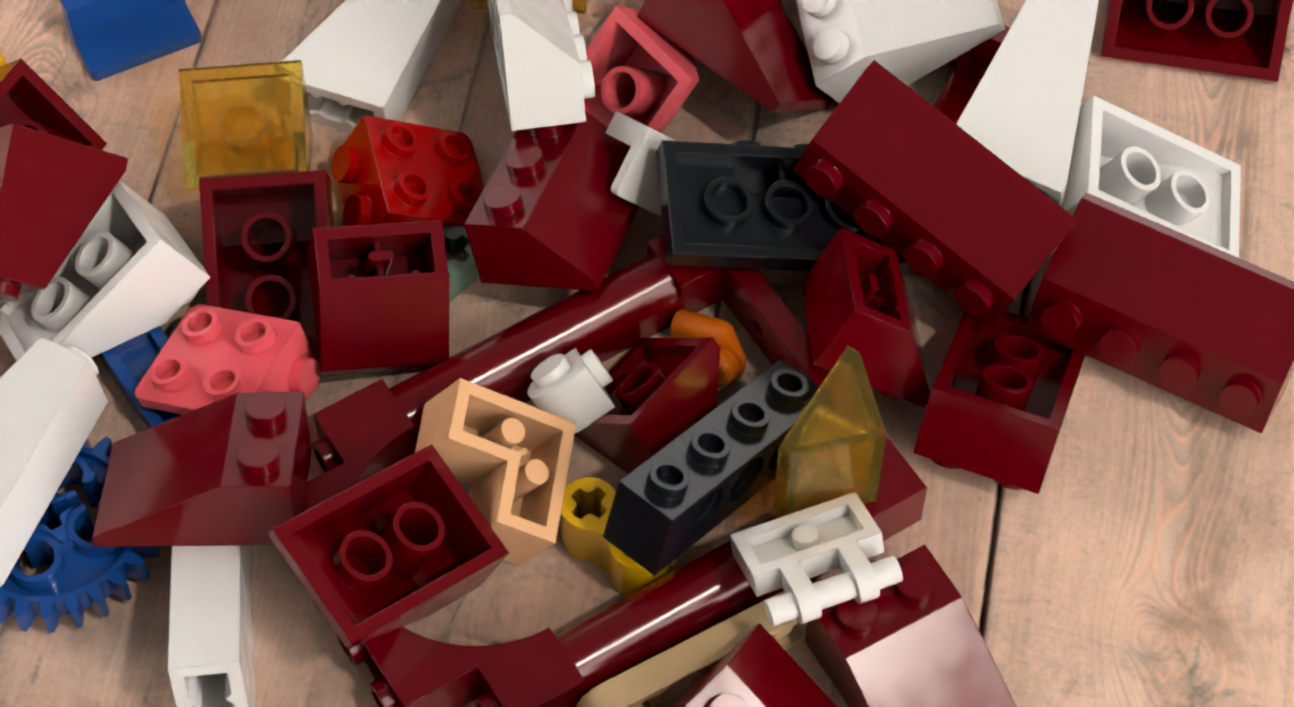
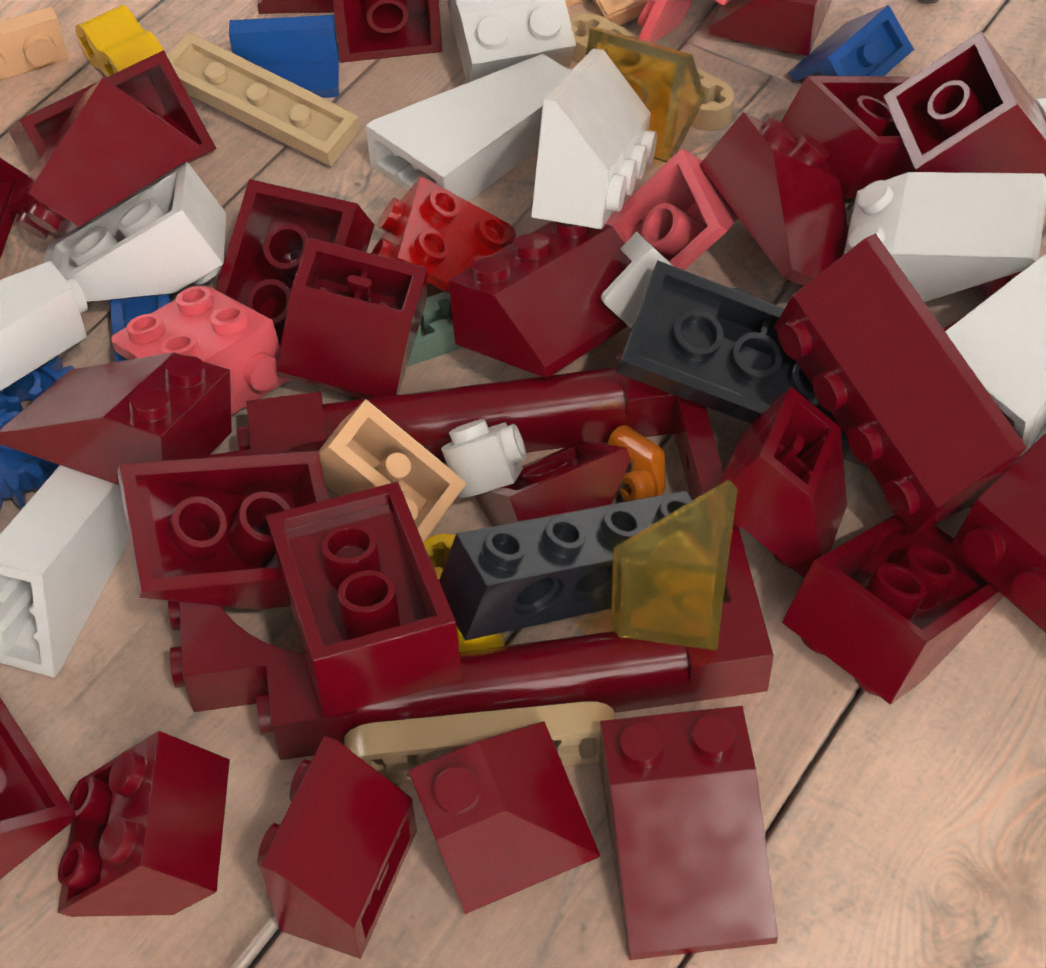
camera: 25 degrees right, 5 degrees down
(108, 67) = (264, 99): none -> tan plate
(244, 120) = (327, 151): clear yellow slope -> none
(551, 570) = (365, 599): none -> dark red slope
(809, 544) = (621, 663): white plate -> none

